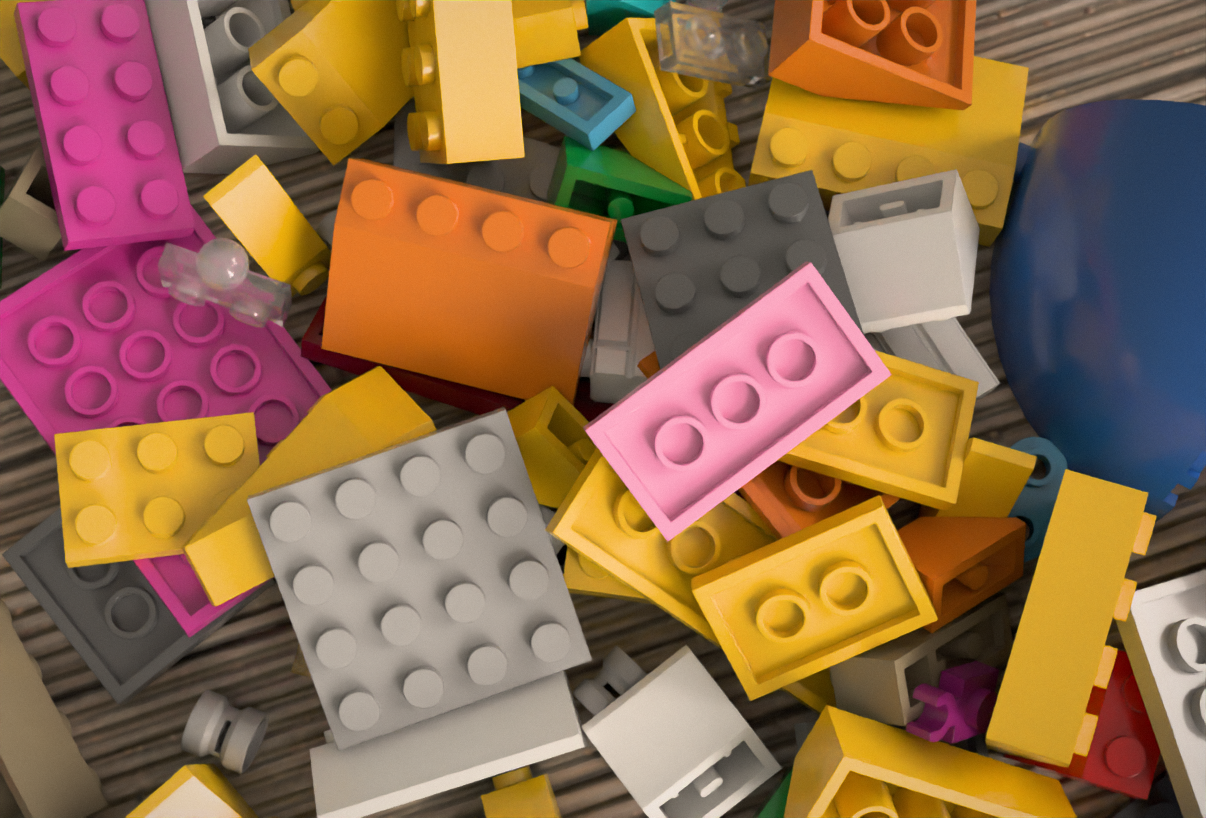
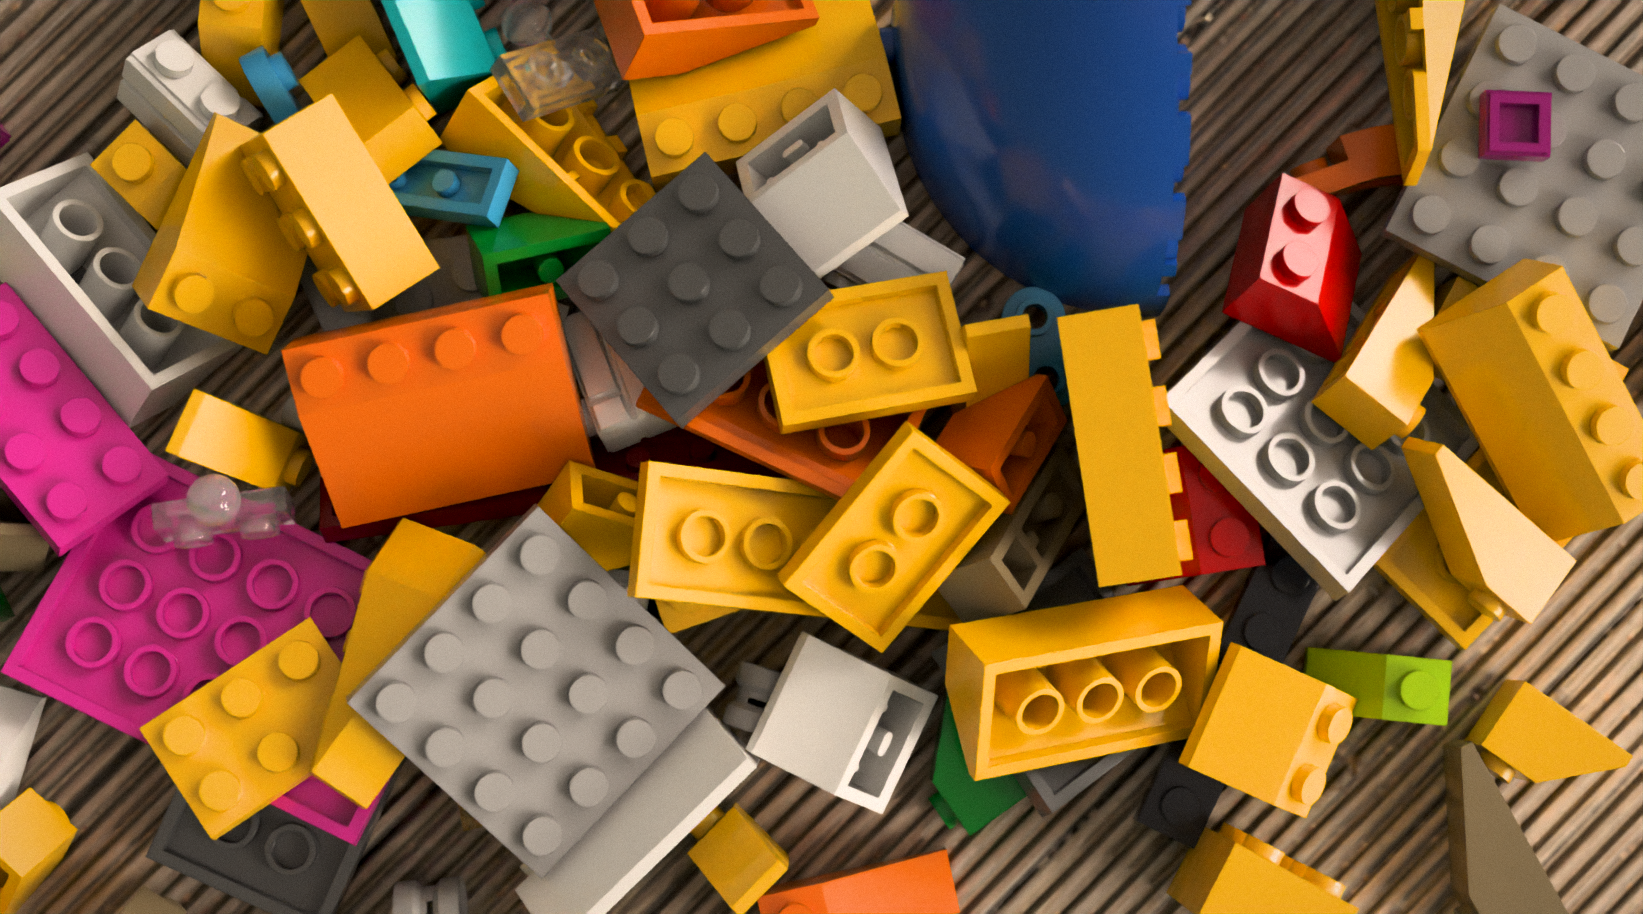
camera: 35 degrees left, 5 degrees up
(737, 400) = (740, 399): bright pink plate -> none
(959, 705) = (1064, 565): magenta plate -> none

